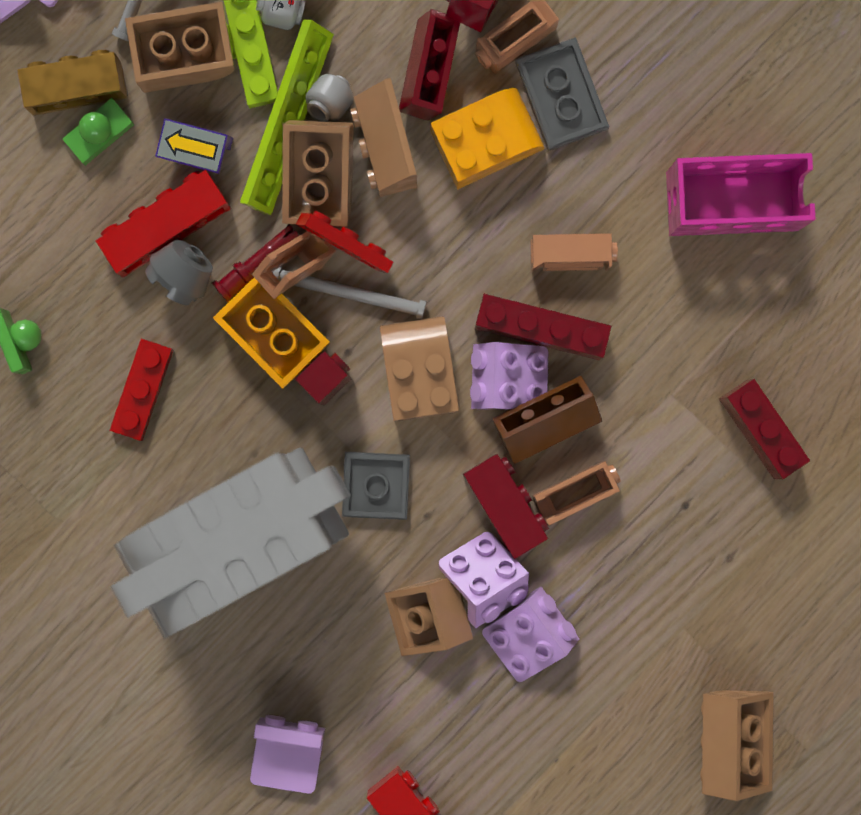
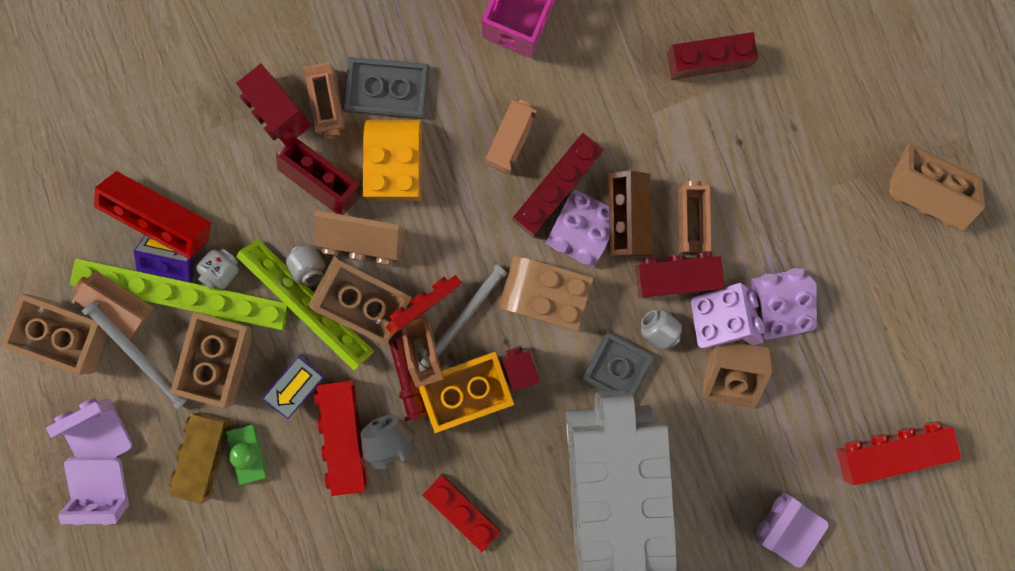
camera: 65 degrees left, 0 degrees up
(438, 512) = (661, 329): none -> light grey head

